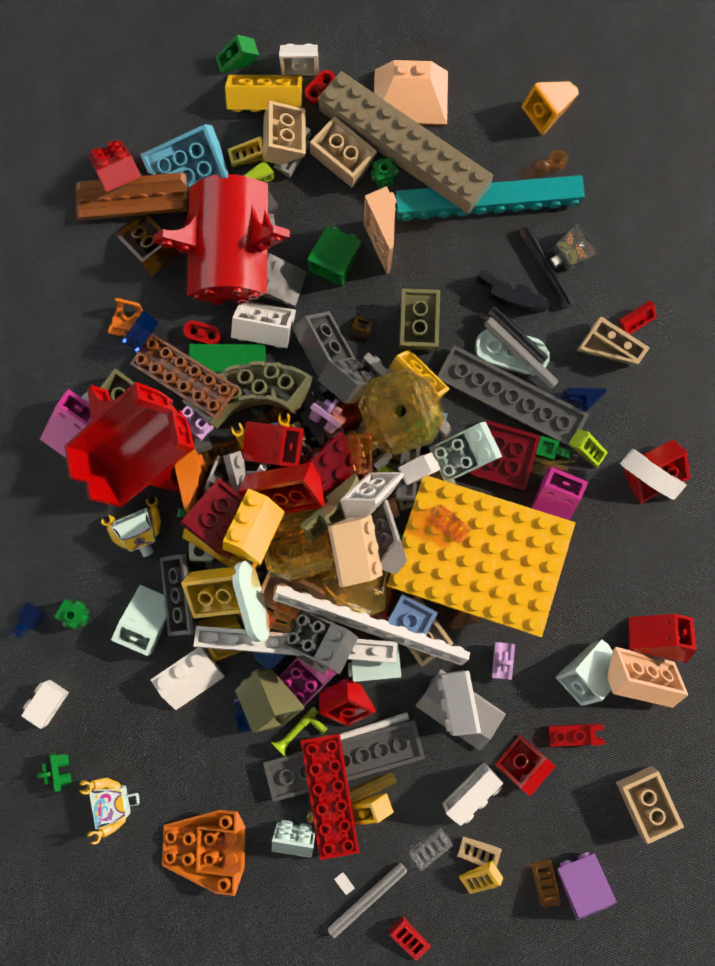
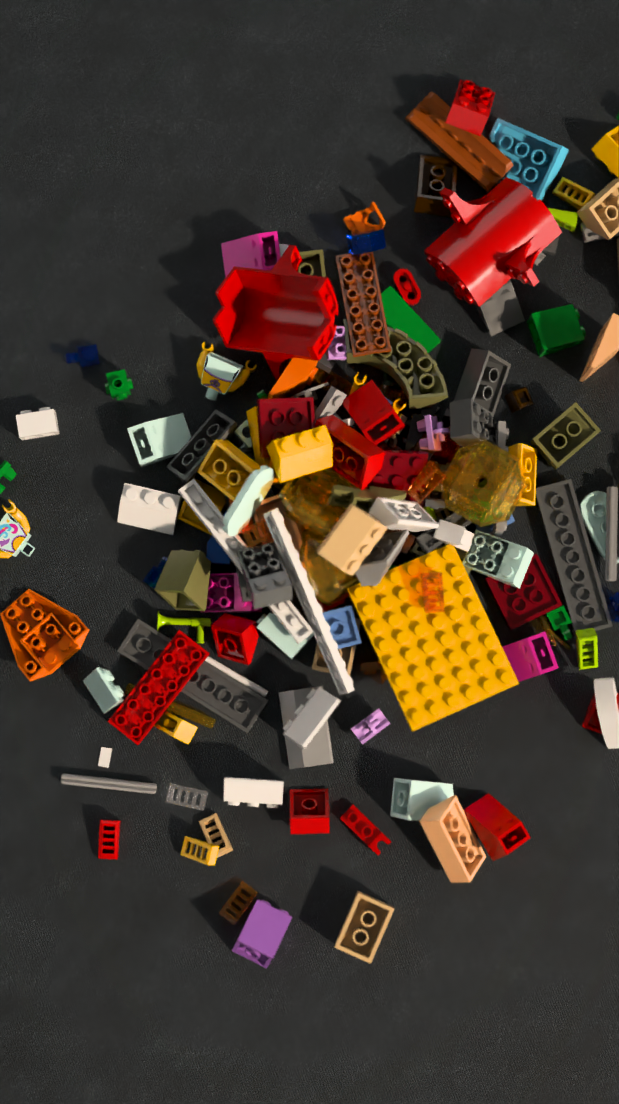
camera: 50 degrees right, 0 degrees up
(263, 324) = (455, 325): white slope -> none

